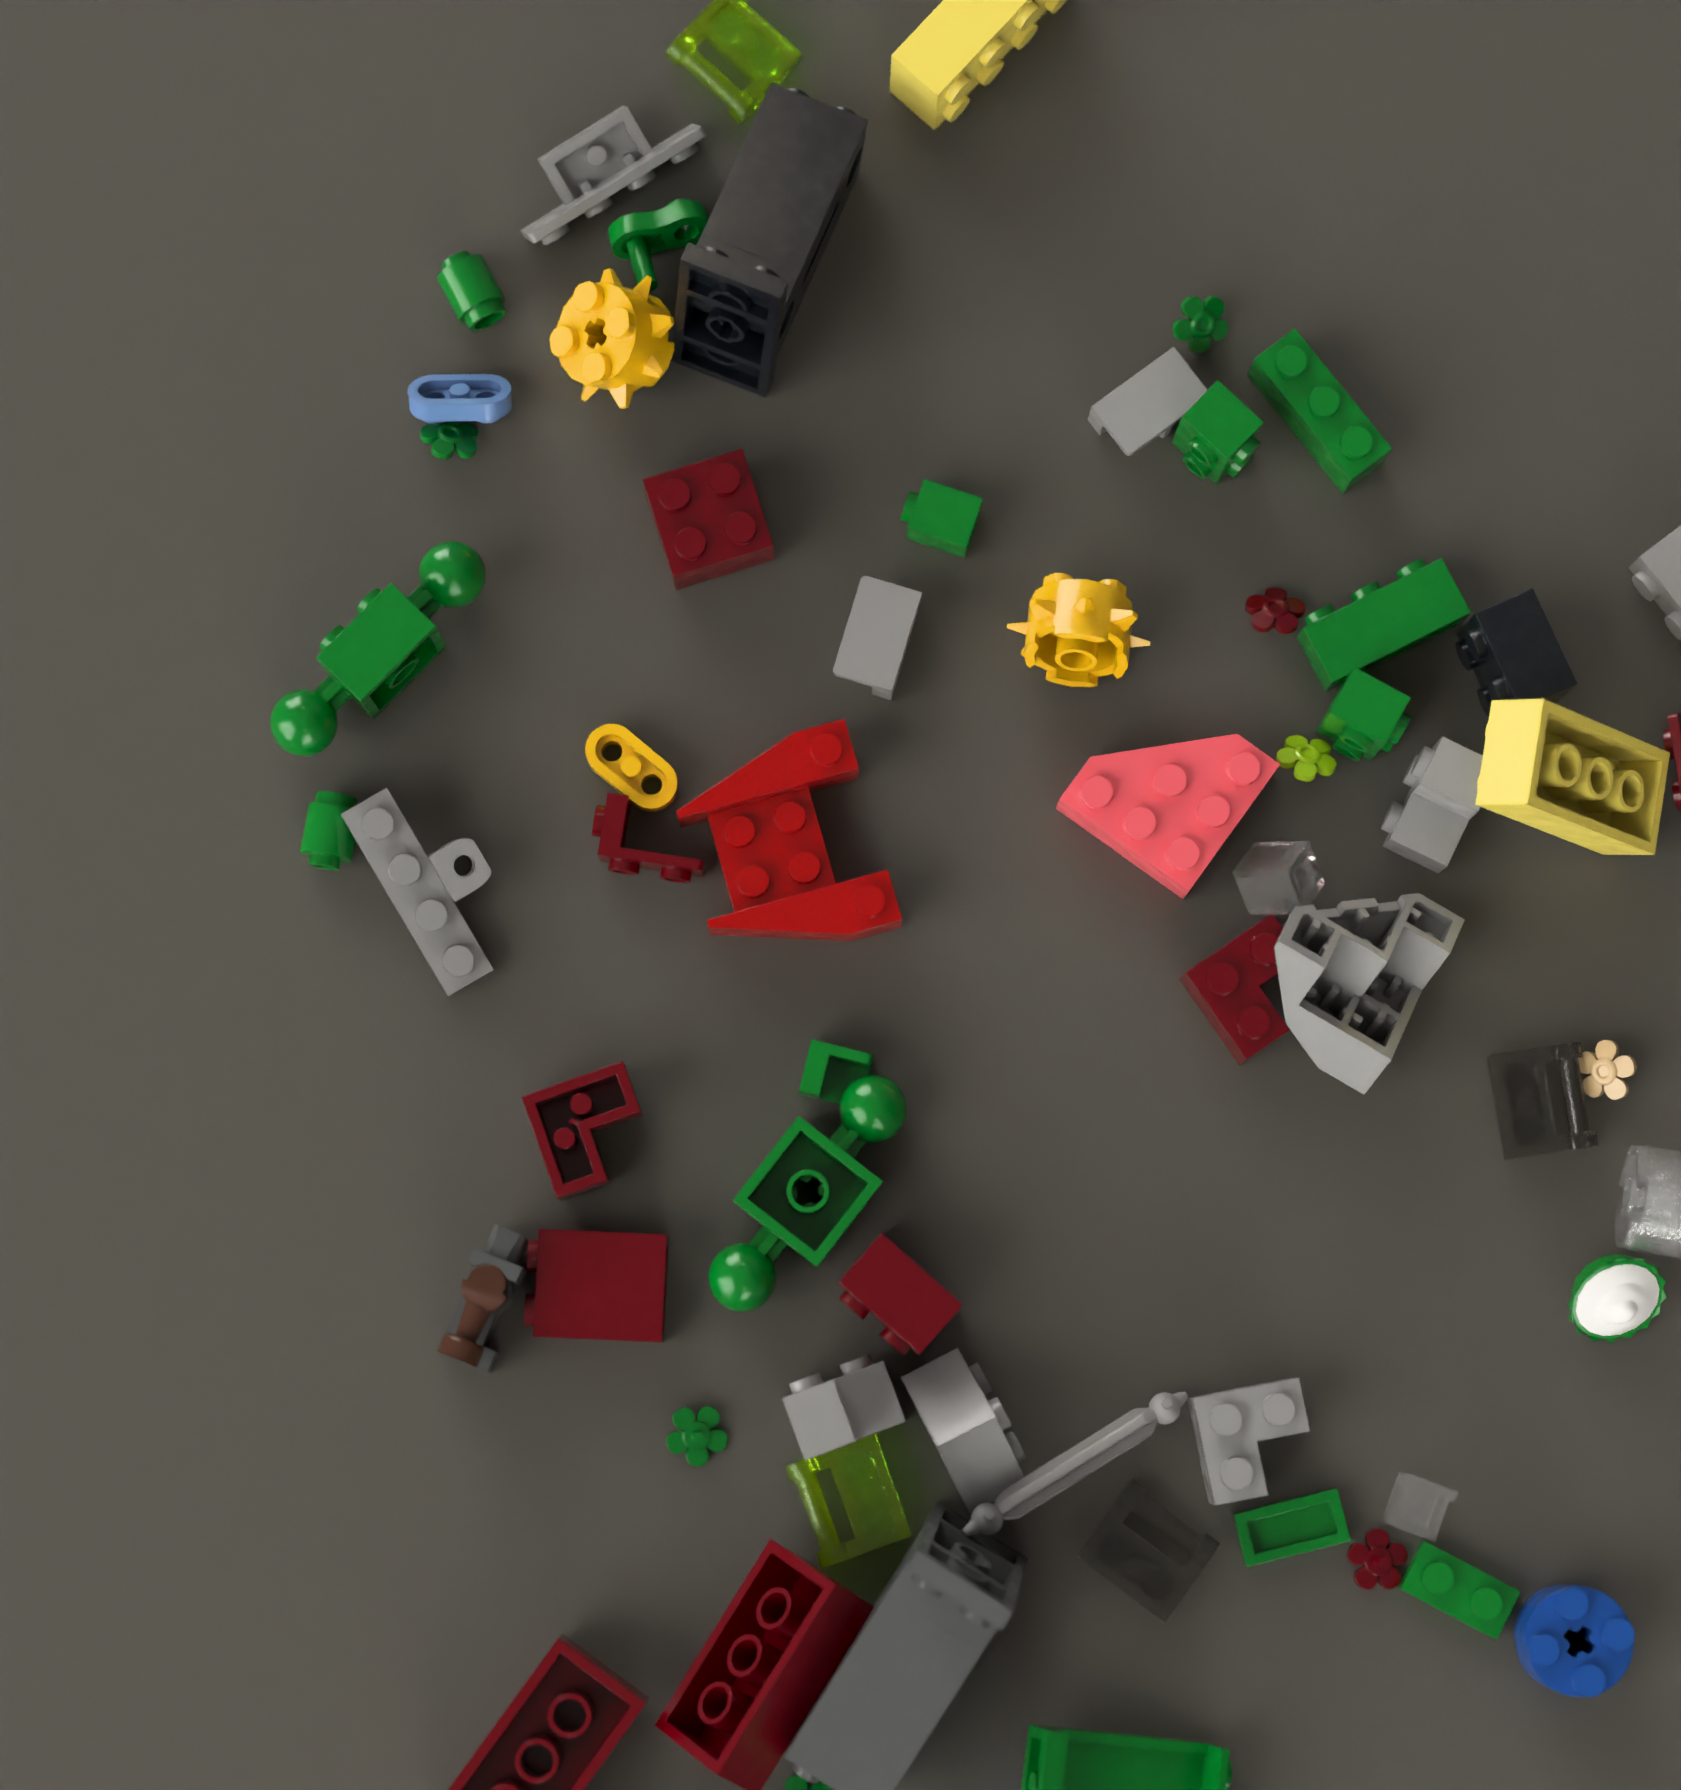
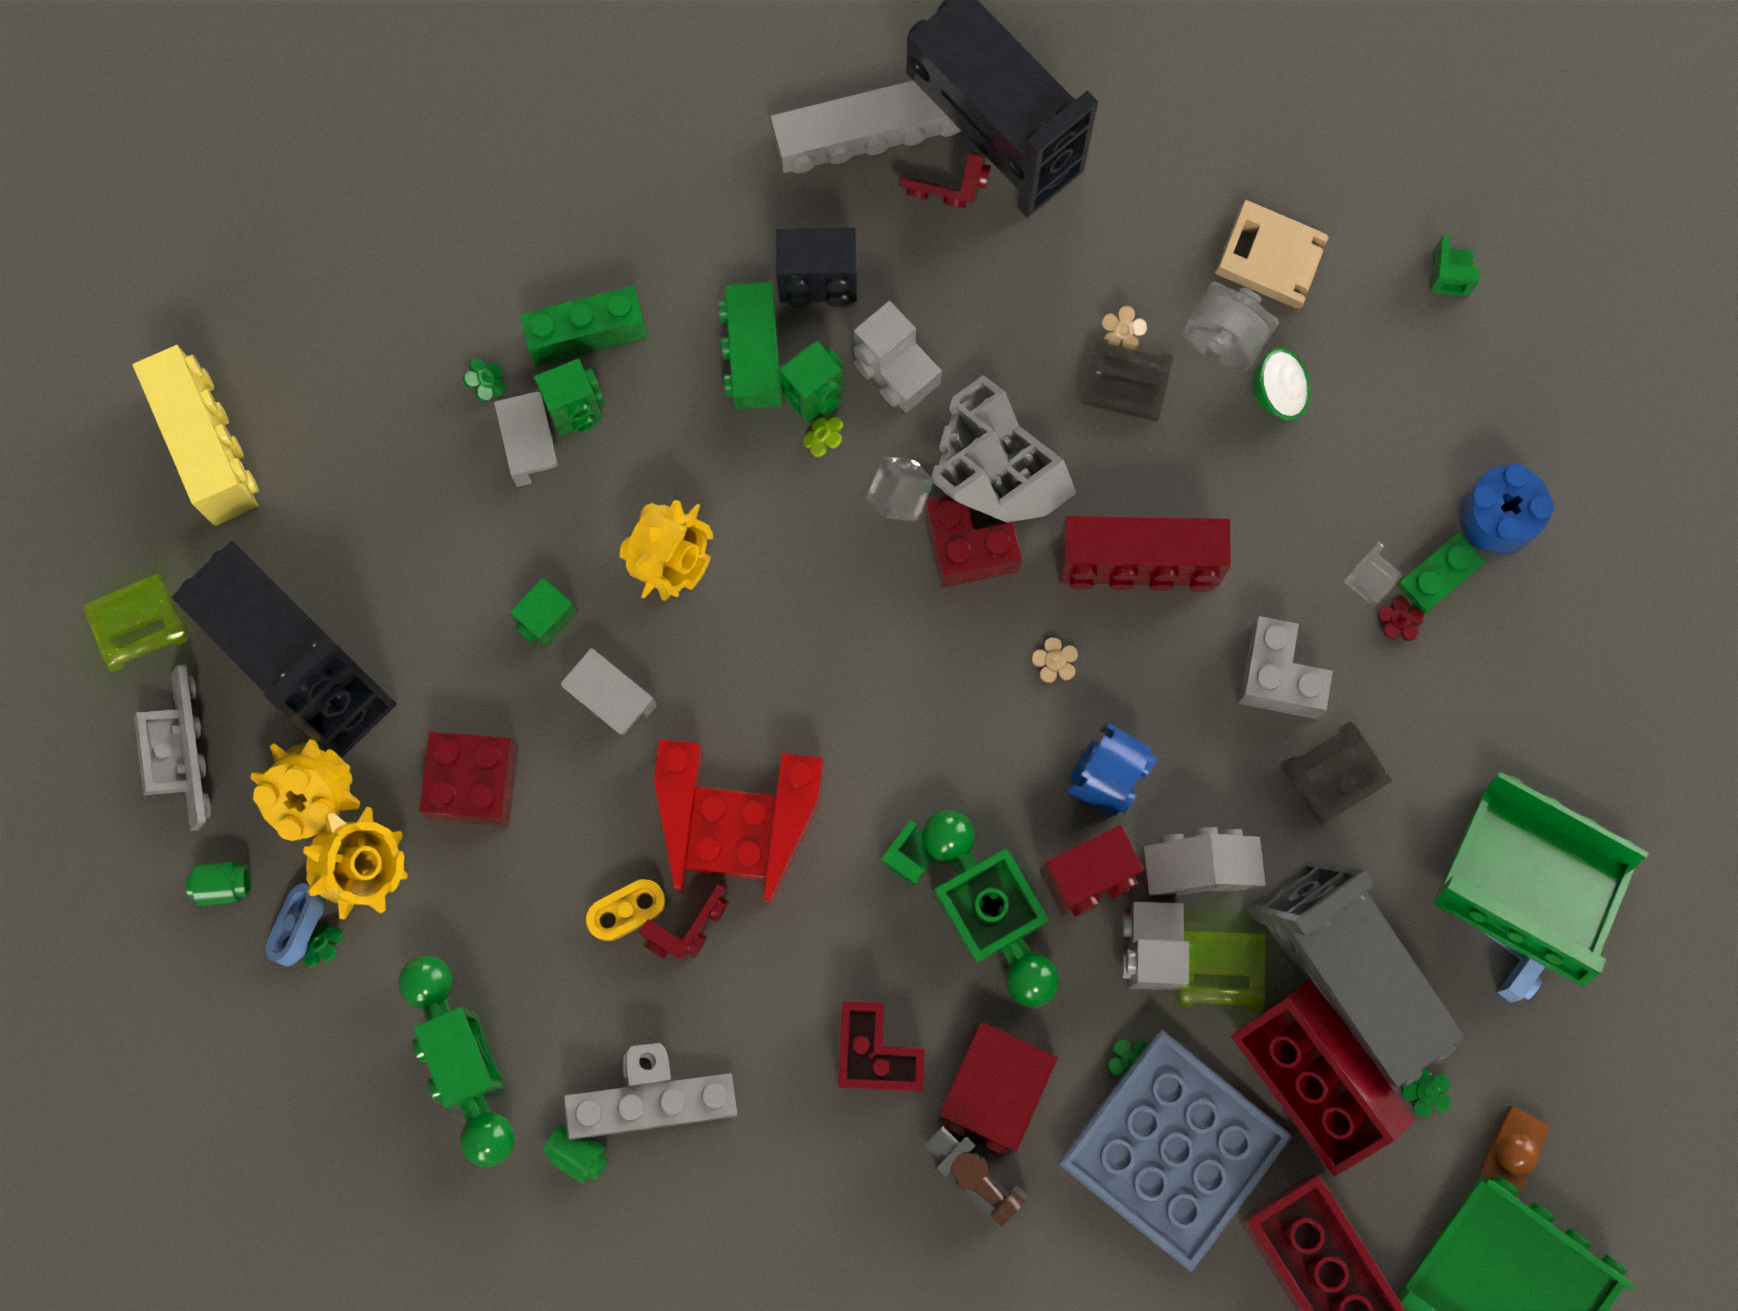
camera: 65 degrees left, 5 degrees down
(548, 406) = (333, 857): none -> yellow brick
(612, 1525) = (1175, 1150): none -> sand blue tile
(645, 233) = (236, 739): green piece -> none
(1032, 1271) = (1110, 771): none -> blue brick
(1075, 1464) = (1258, 797): light grey wheel -> none
(1145, 1153) = (1055, 661): none -> tan plant
(1169, 802) = (817, 540): coral brick -> none
(1275, 611) = (710, 415): dark red plant -> none
(1291, 1527) = (1356, 669): green tile -> none
(1321, 1206) = (1144, 552): none -> dark red brick
(1572, 777) = (917, 259): light yellow brick -> none

